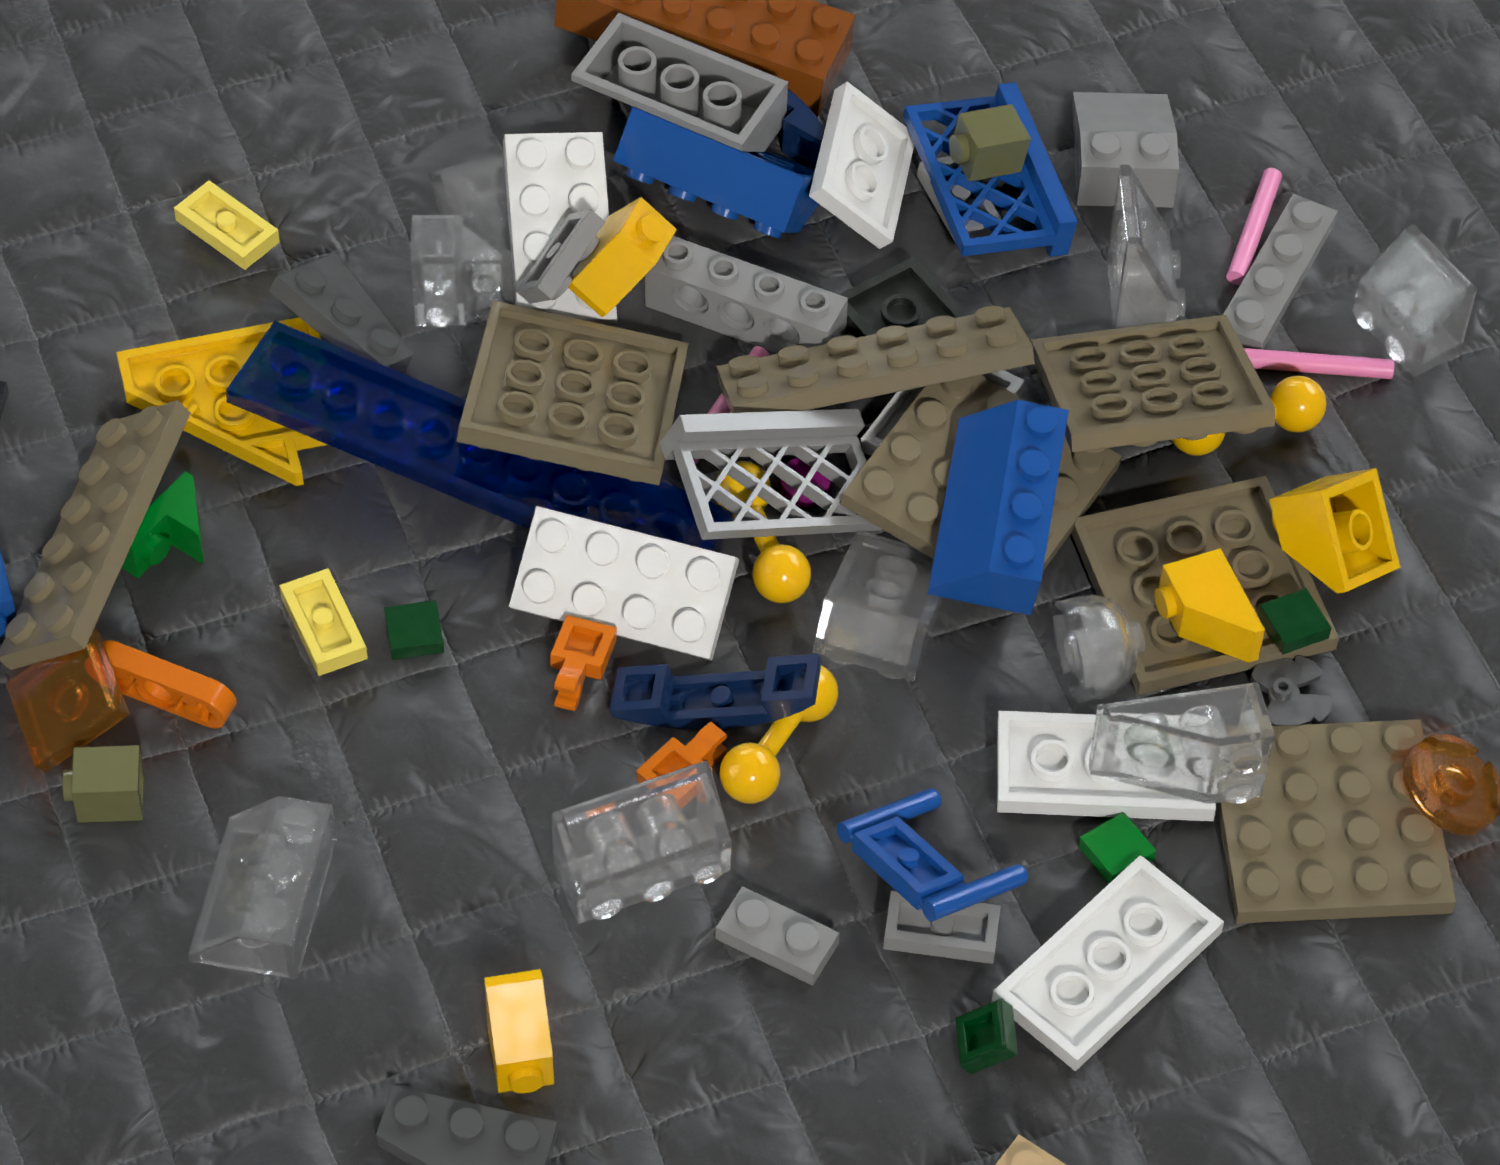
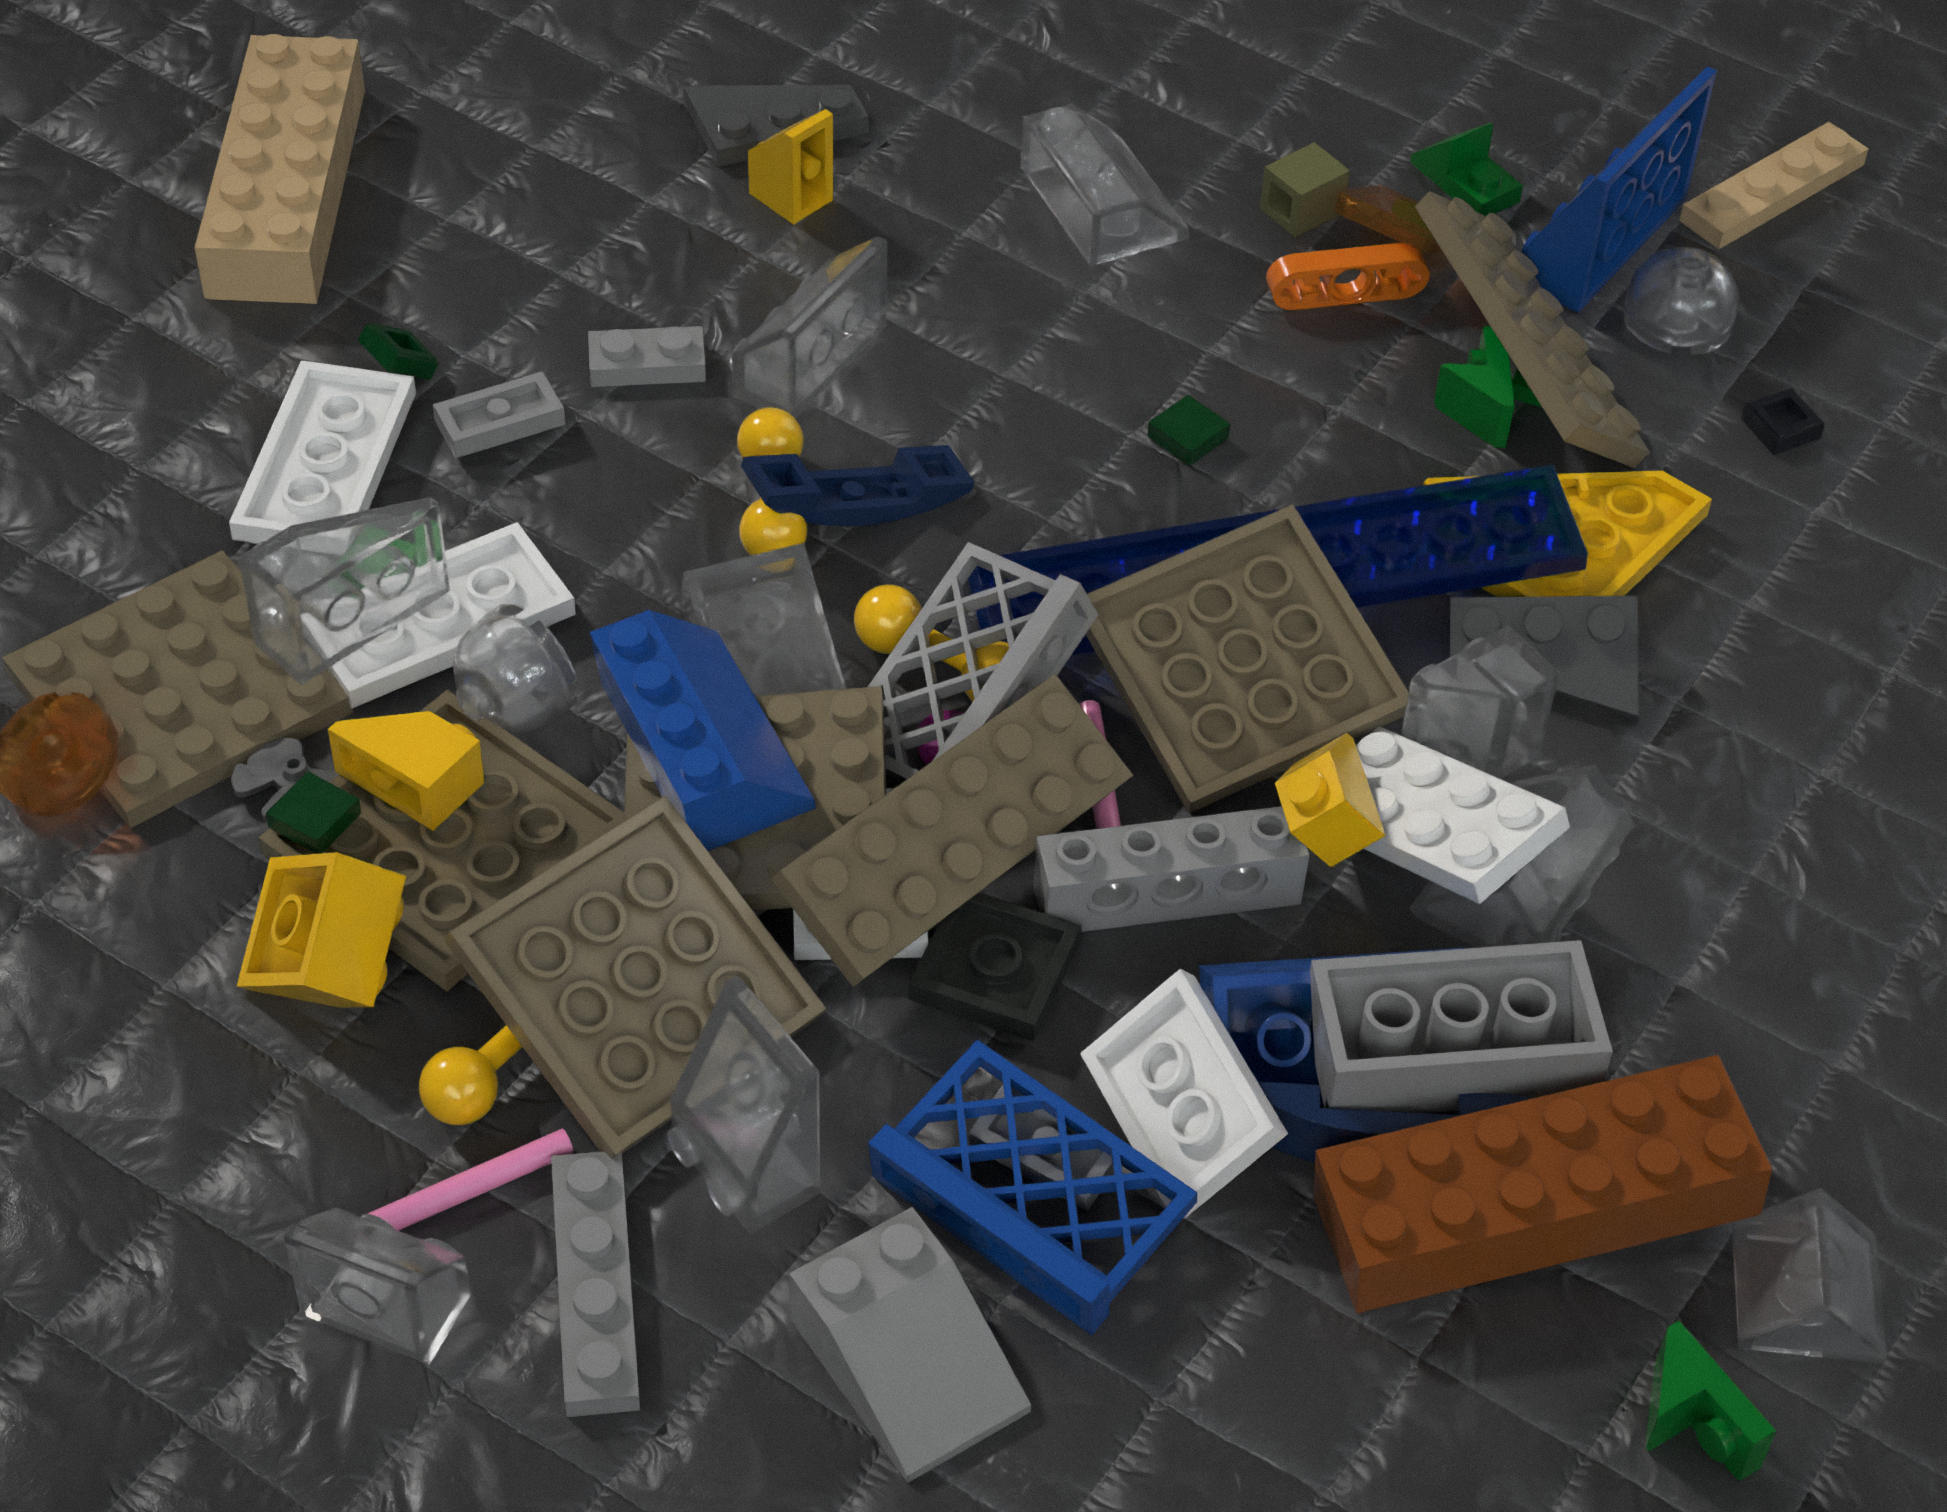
camera: 145 degrees right, 5 degrees down
(226, 225) = (1771, 682): light yellow plate -> none
(323, 622) = (1270, 387): light yellow plate -> none
(570, 244) = (1379, 743): light grey plate -> none
(580, 652) = (1013, 471): orange plate -> none
(624, 579) = (1032, 528): white plate -> none
(675, 755) = (837, 421): orange plate -> none
(915, 866) = (559, 420): blue plate -> none
(989, 142) = (1045, 1166): olive brick -> none
(1254, 226) = (665, 1337): bright pink bar -> none

